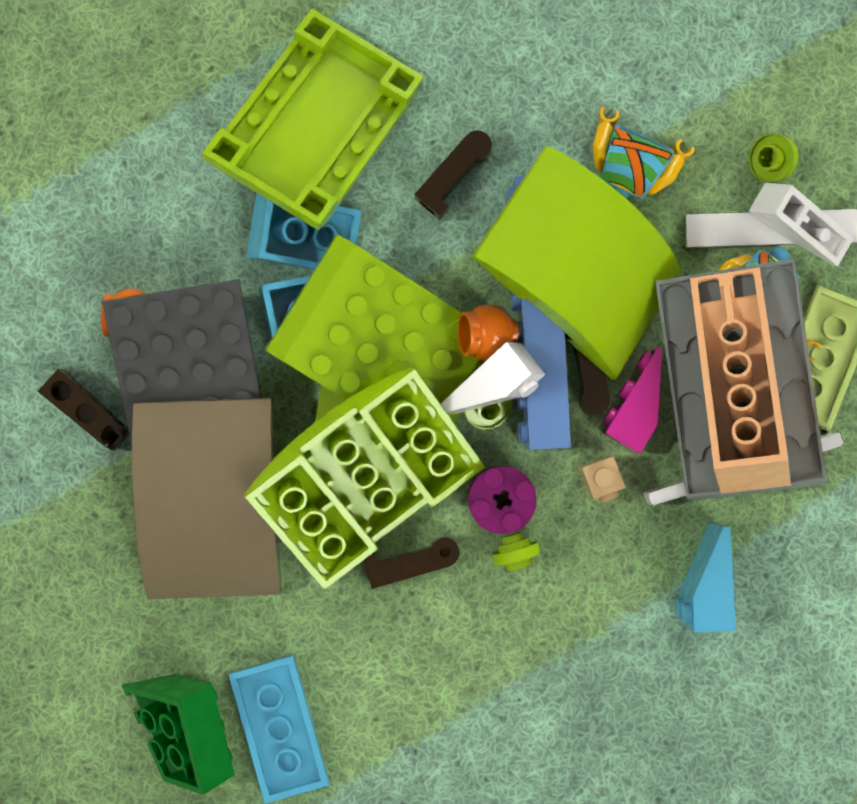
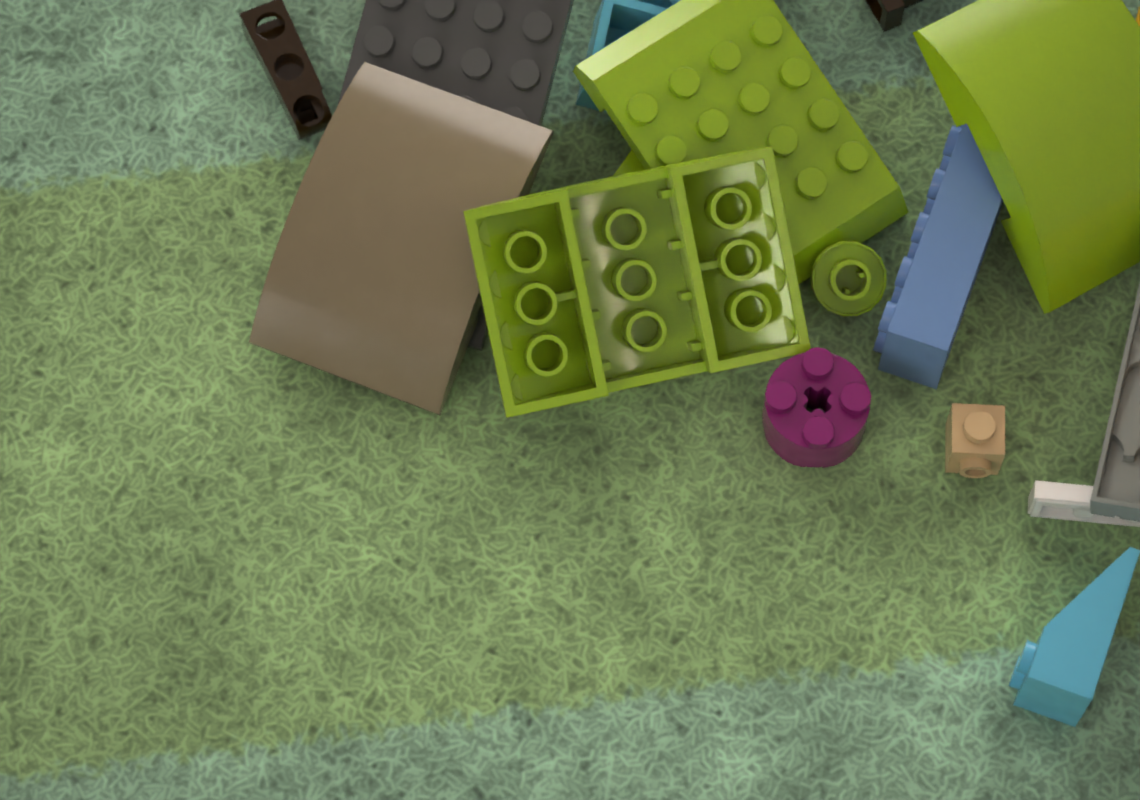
camera: 20 degrees right, 20 degrees down
(185, 730) = (212, 535): green wedge -> none
(279, 728) = (346, 598): medium azure plate -> none
(439, 555) = (644, 446): dark brown leg -> none
(485, 331) = (892, 162): orange piece -> none
(503, 377) = (873, 225): white slope -> none
(516, 552) = (805, 489): lime plate -> none
(595, 393) = (1013, 323): dark brown leg -> none
(638, 415) = (1058, 378): dark pink slope -> none

